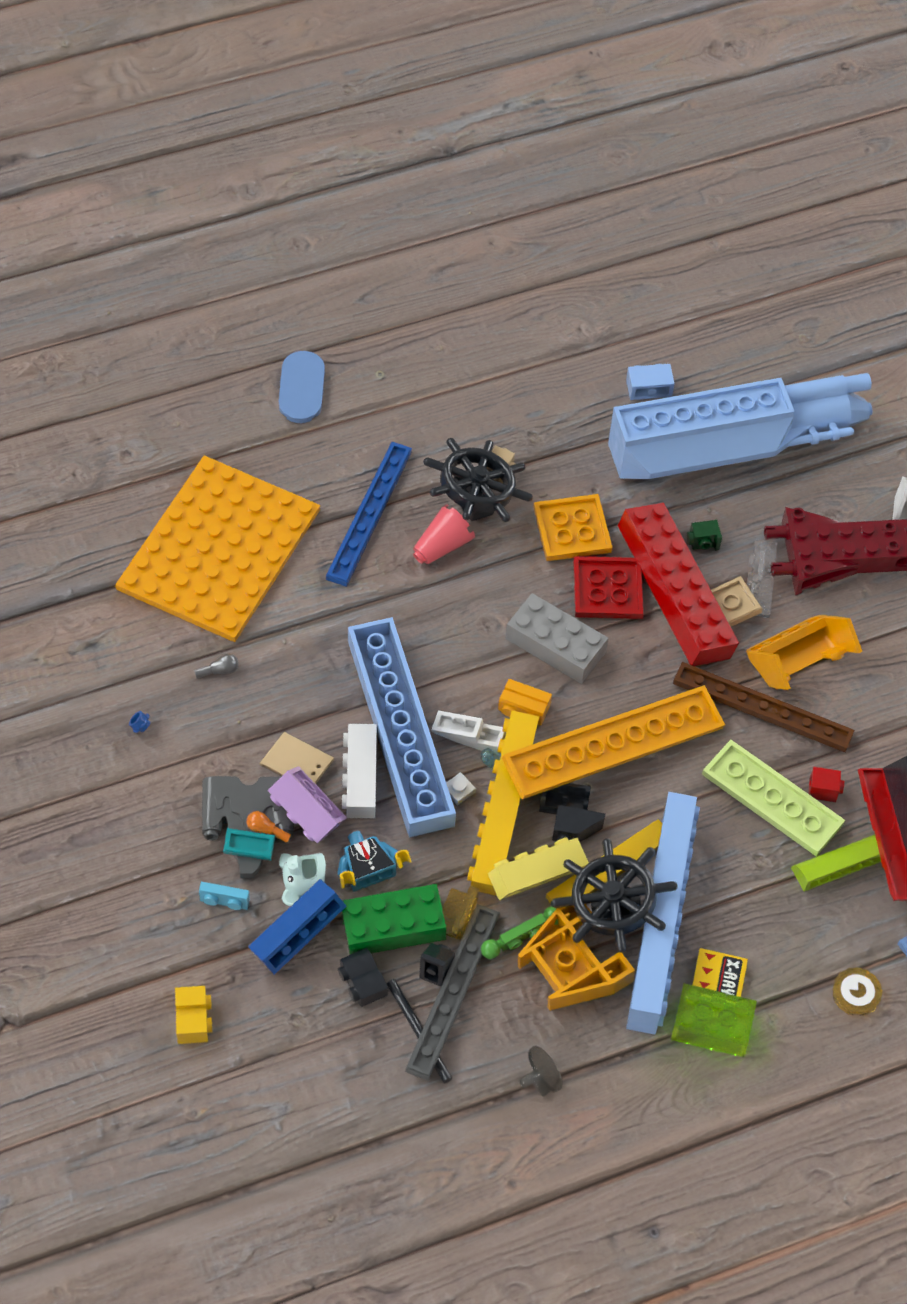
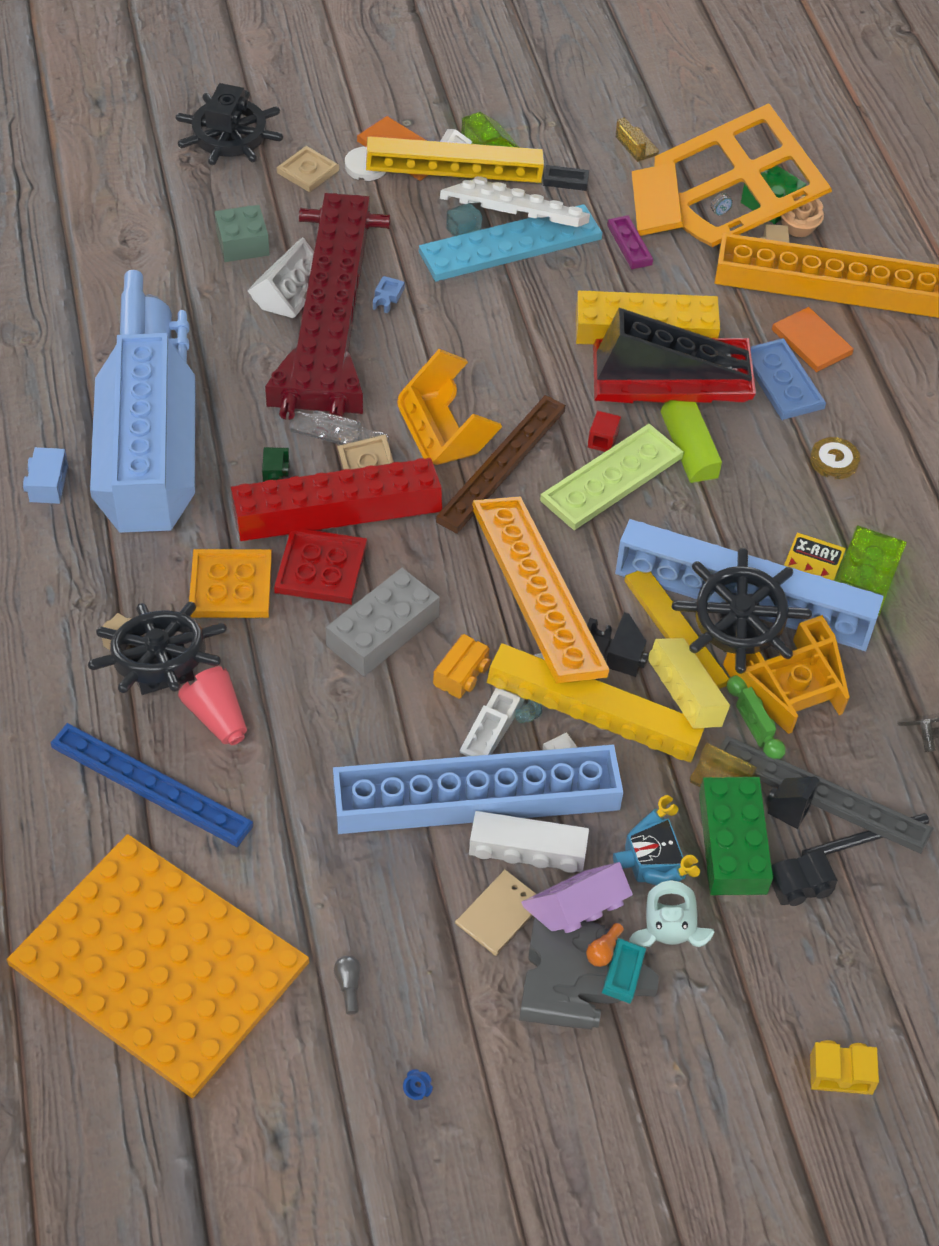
camera: 80 degrees left, 5 degrees down
(223, 895) = (690, 1002): medium azure plate -> none
(297, 926) = (744, 930): blue brick -> none

